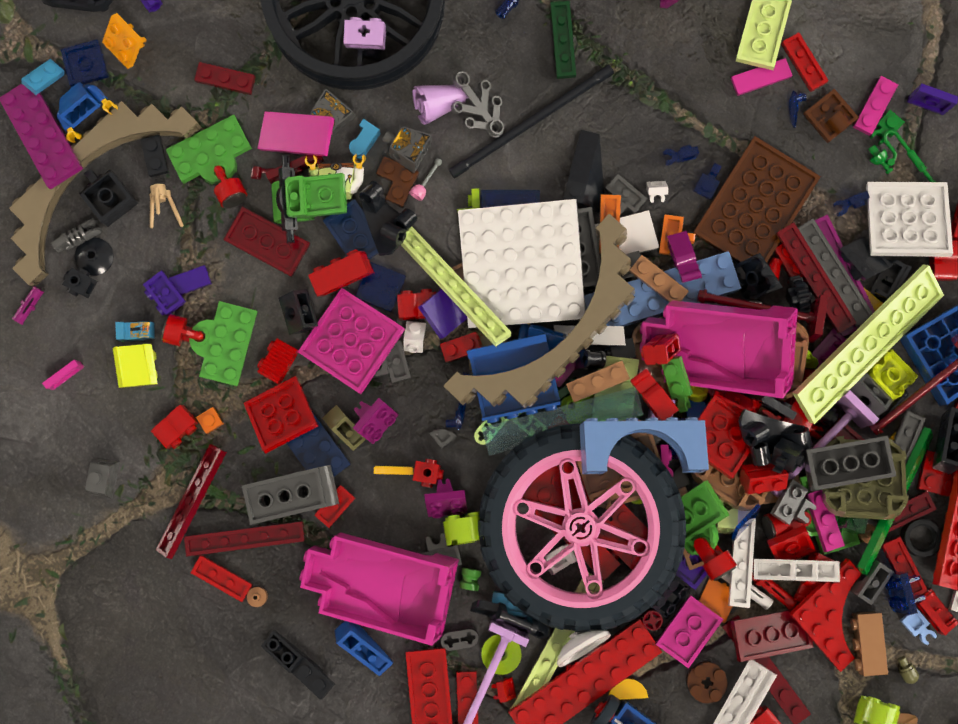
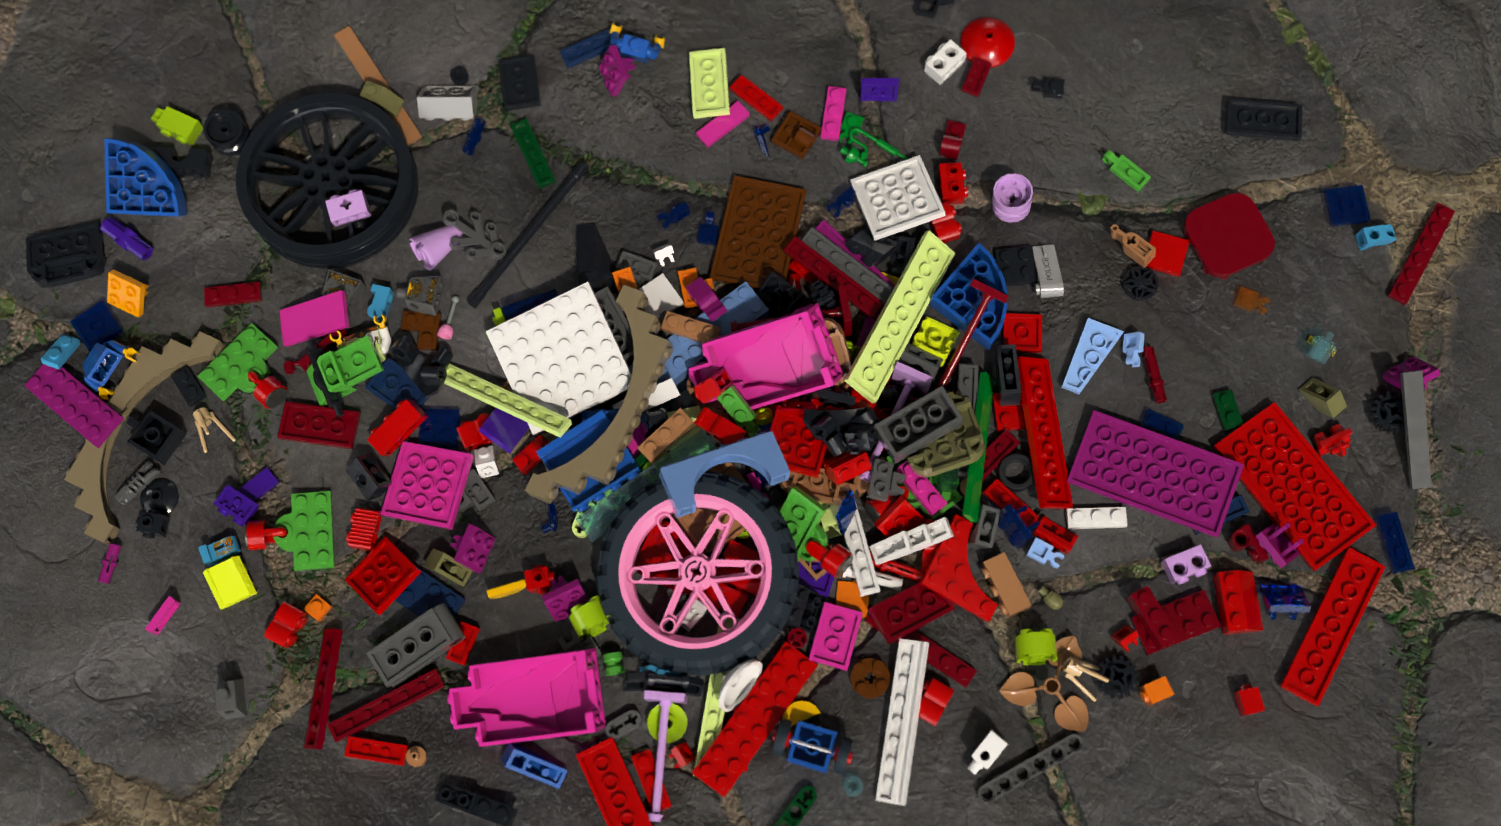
camera: 20 degrees left, 10 degrees down
(442, 437) = (543, 543): dark grey tile -> none

